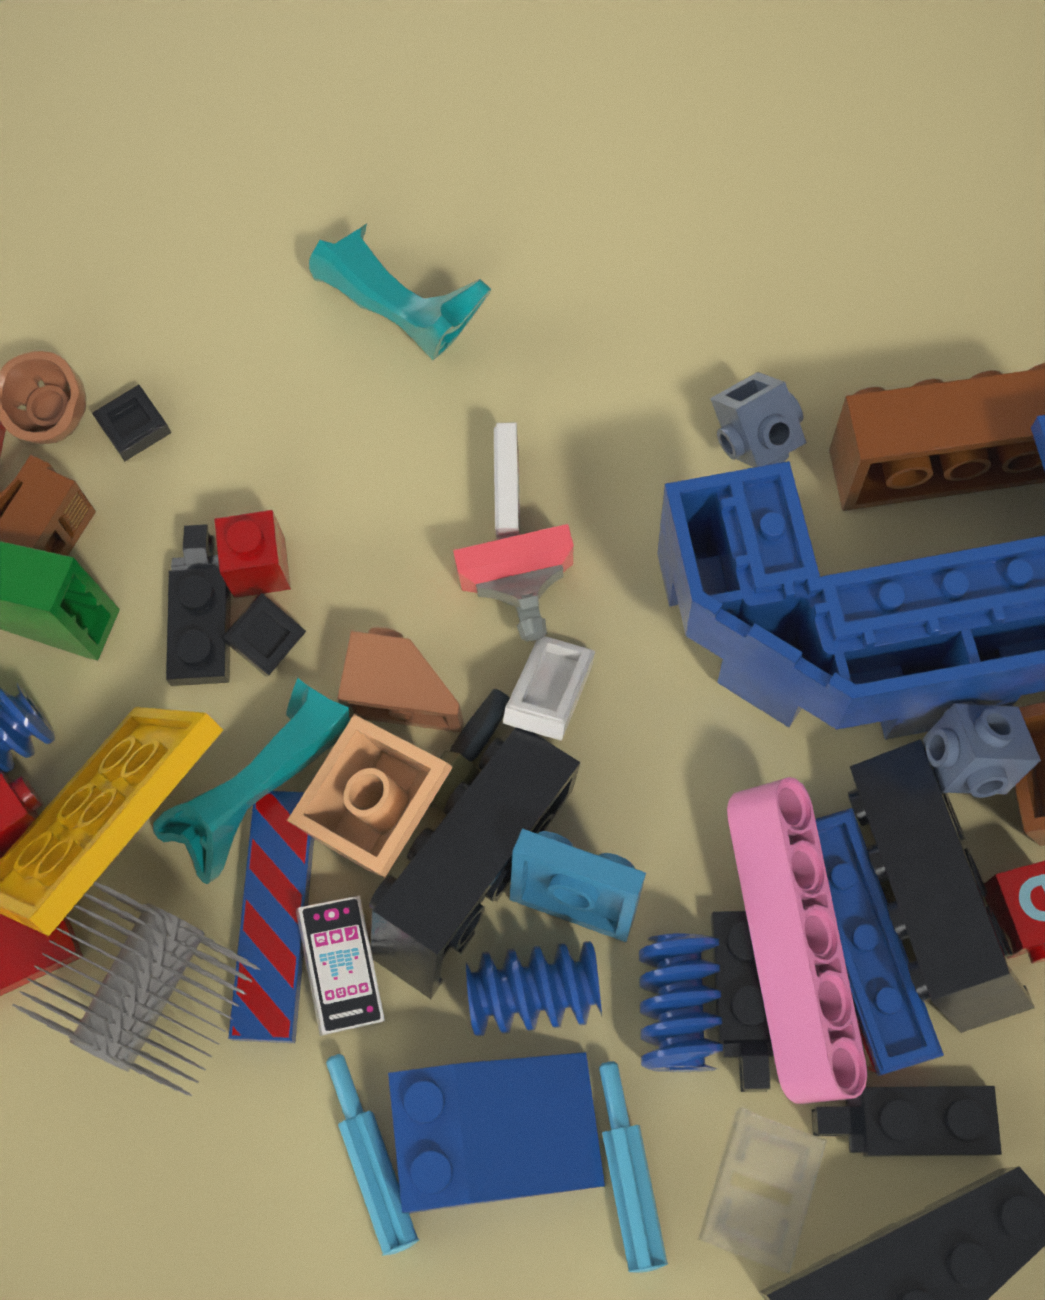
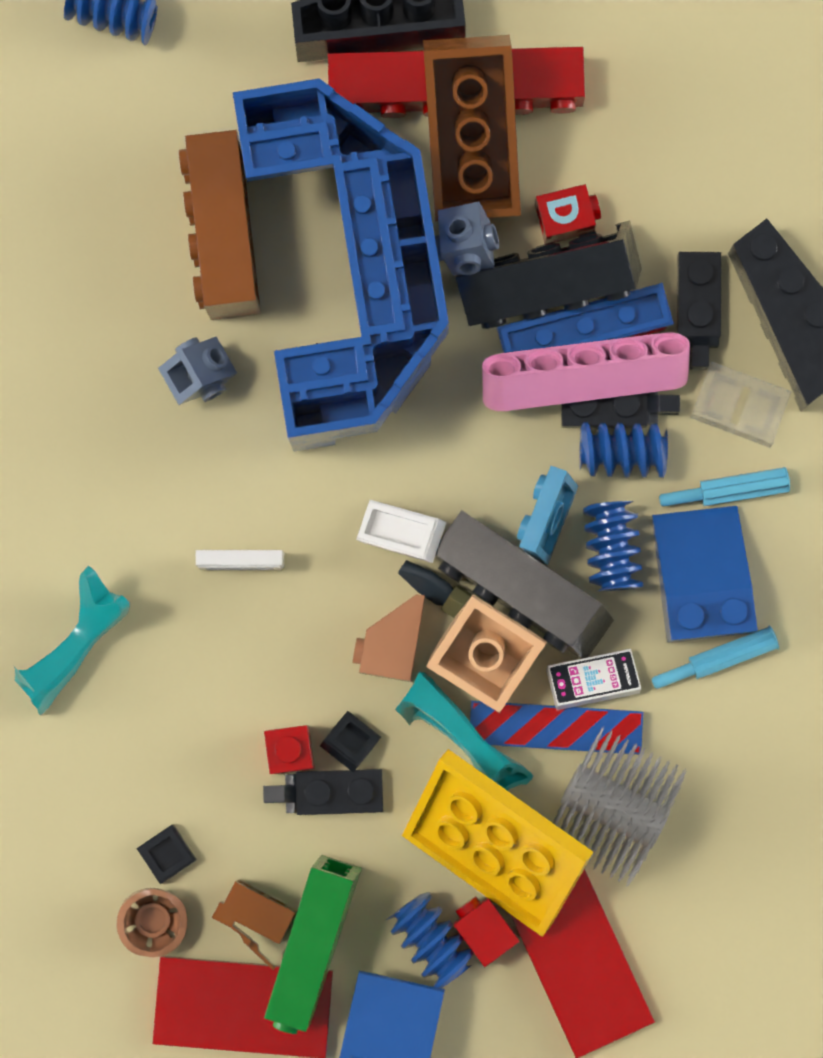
camera: 90 degrees left, 15 degrees up
(518, 572) = (313, 551): coral piece -> none

